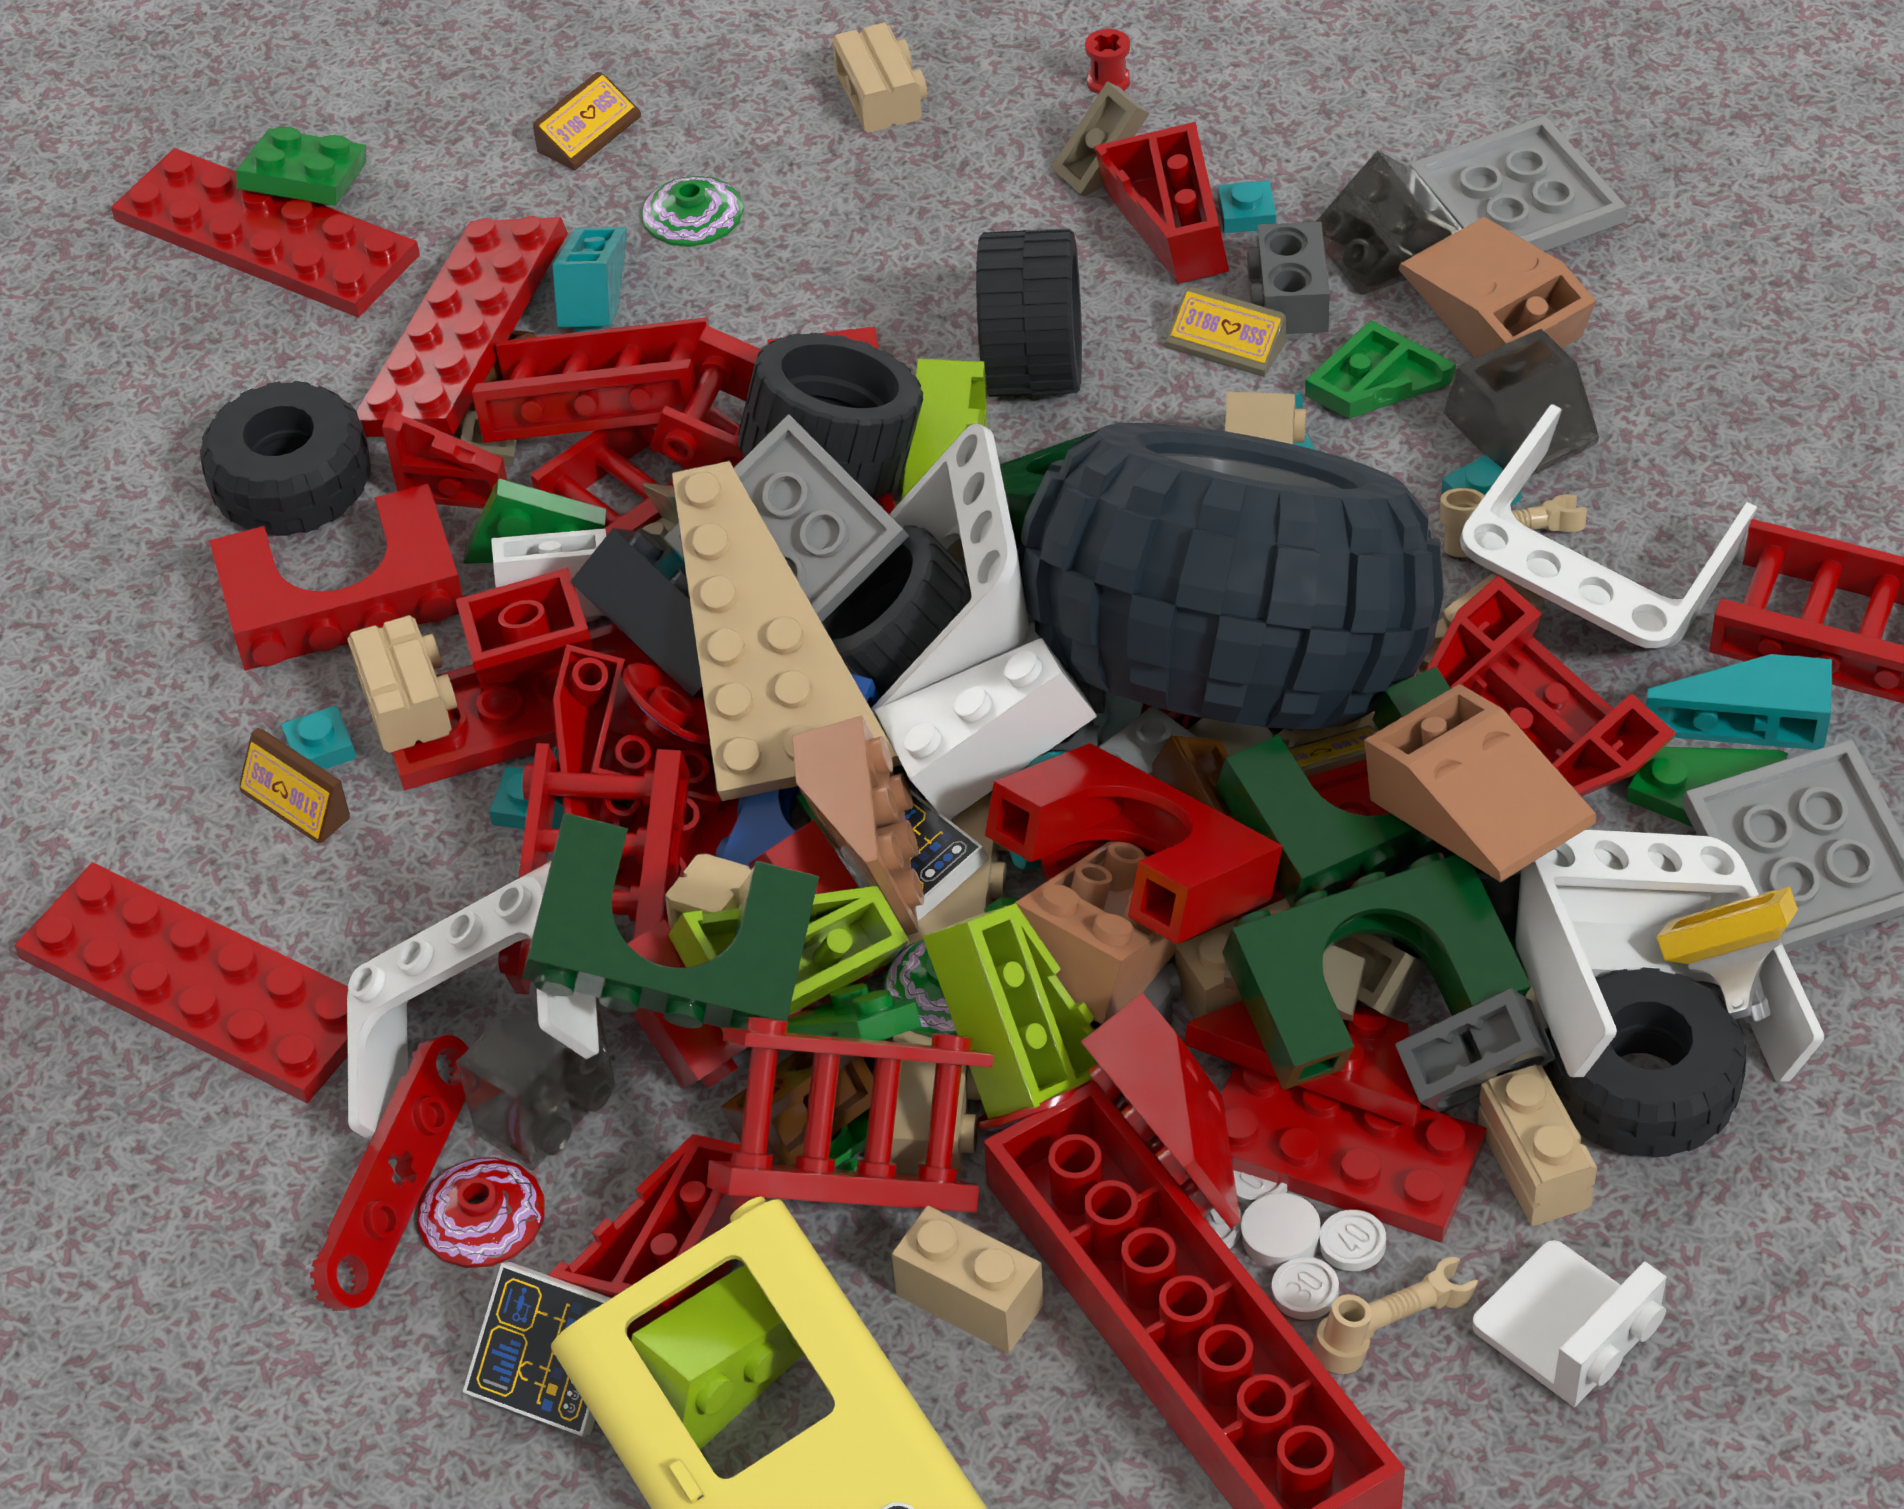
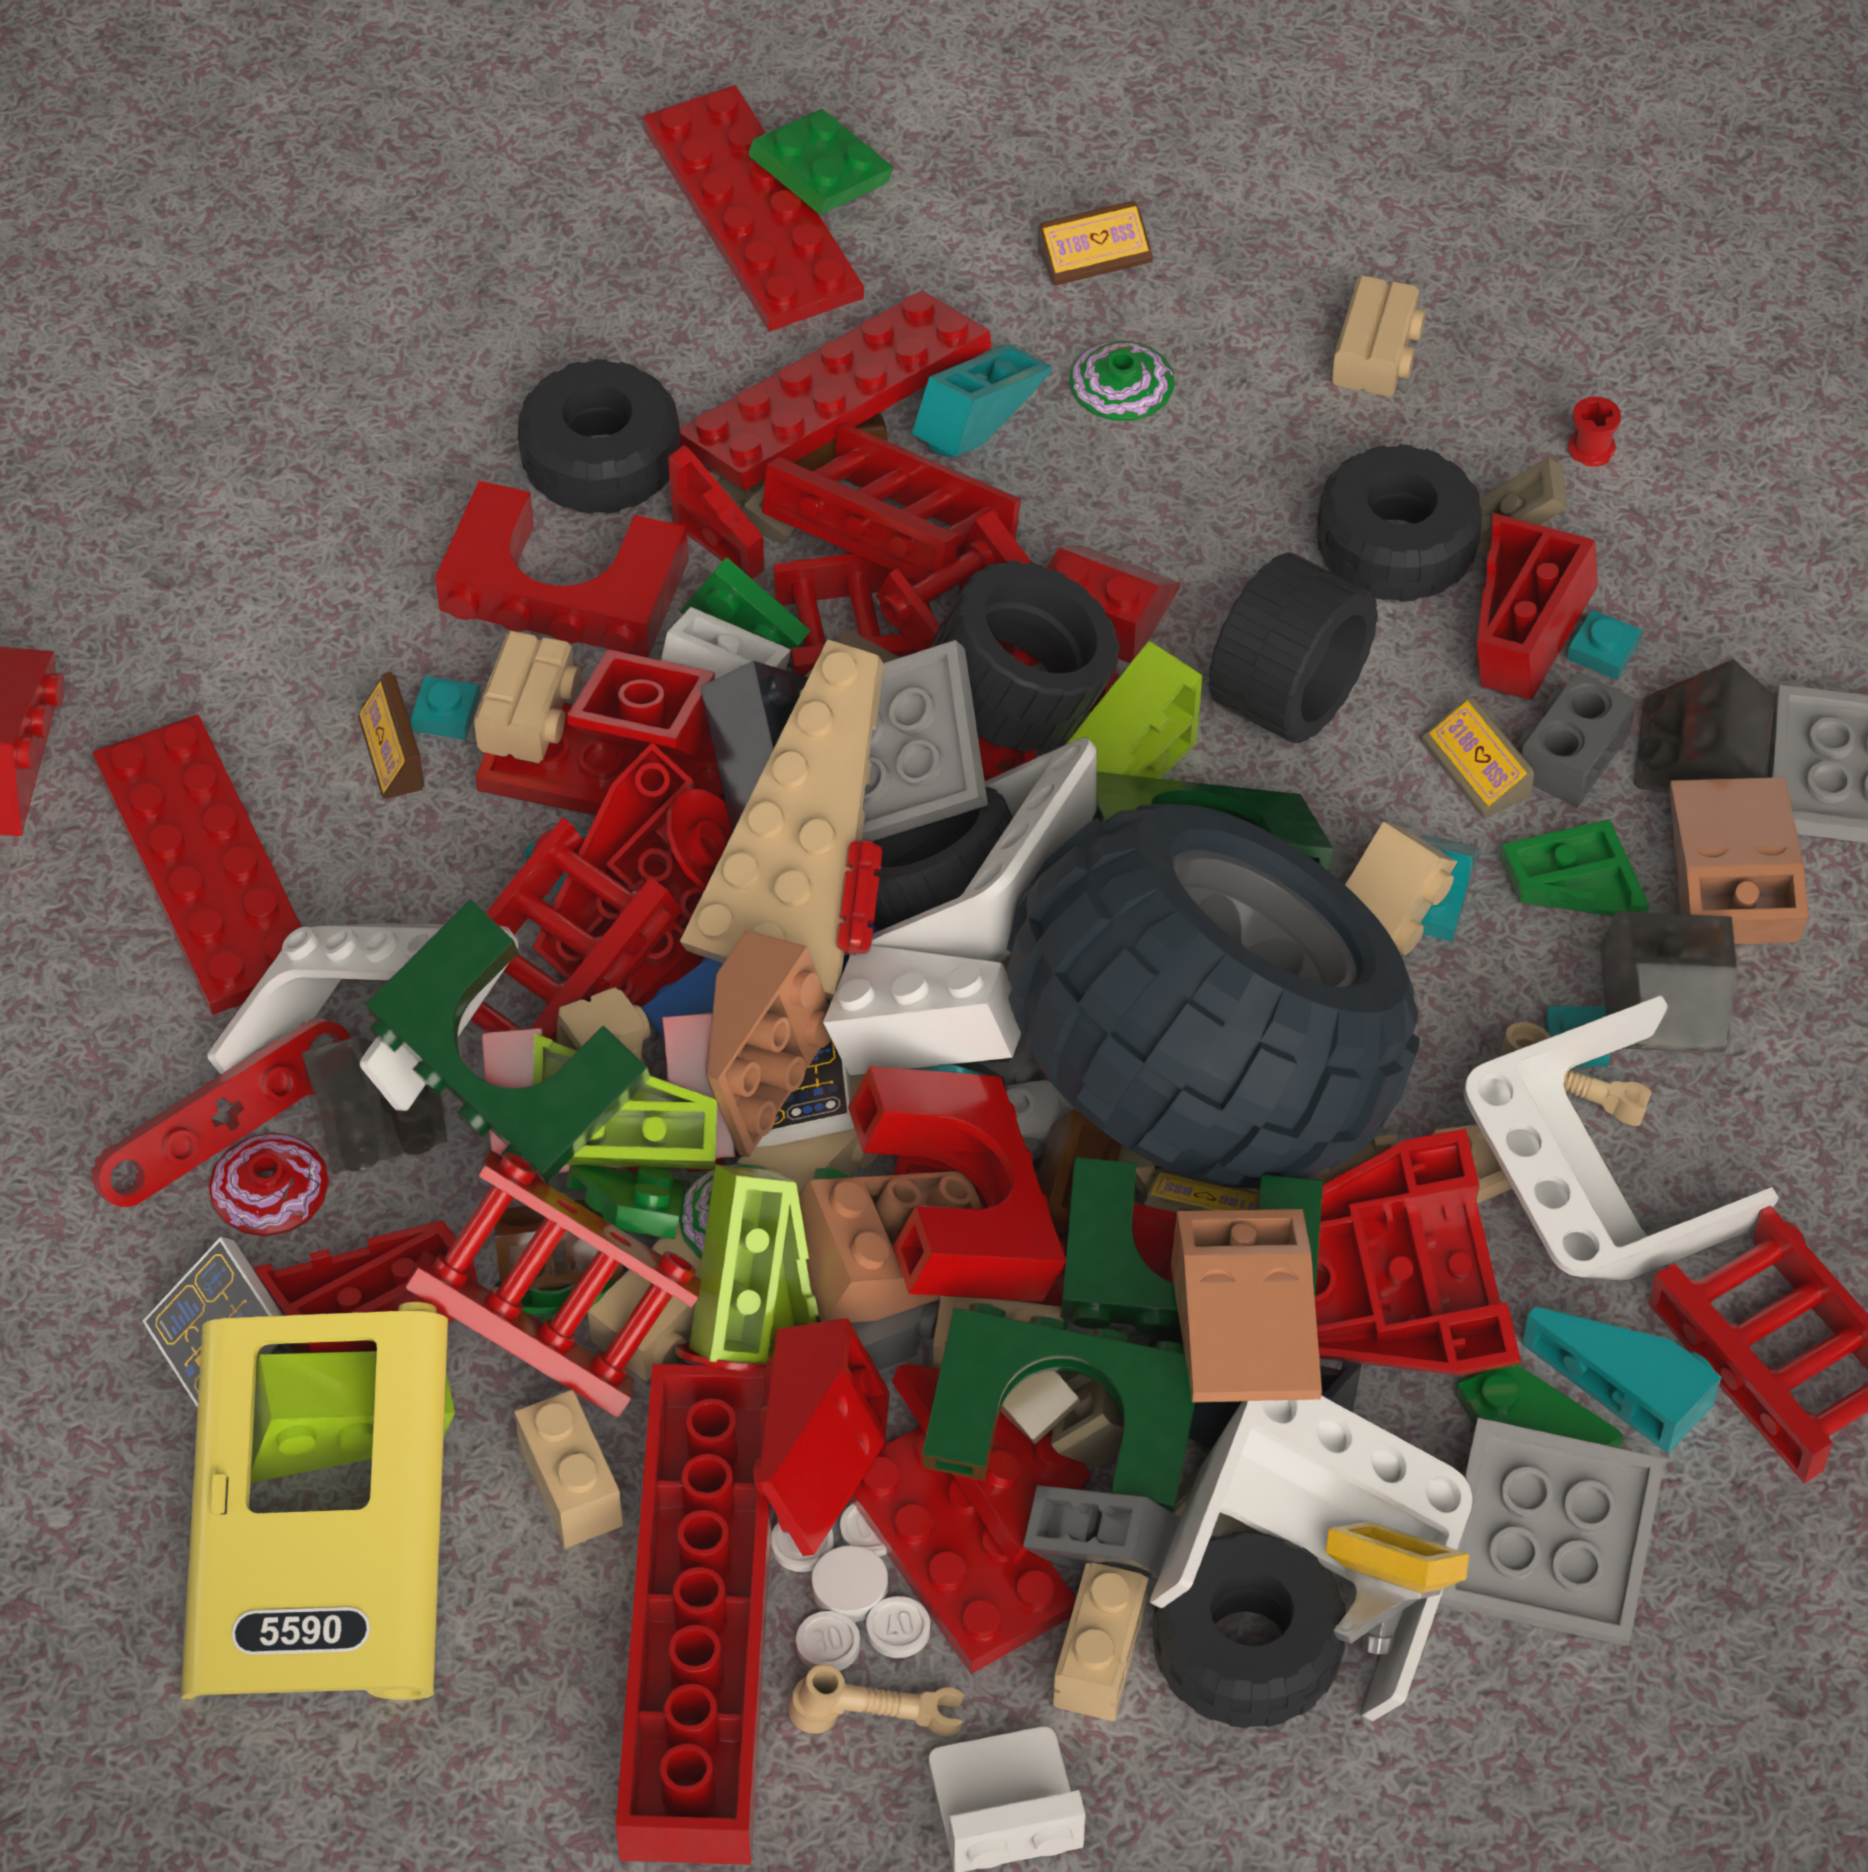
camera: 30 degrees right, 5 degrees up
(859, 664) = (859, 897): none -> red axle
(1016, 182) = (1392, 557): none -> black tyre

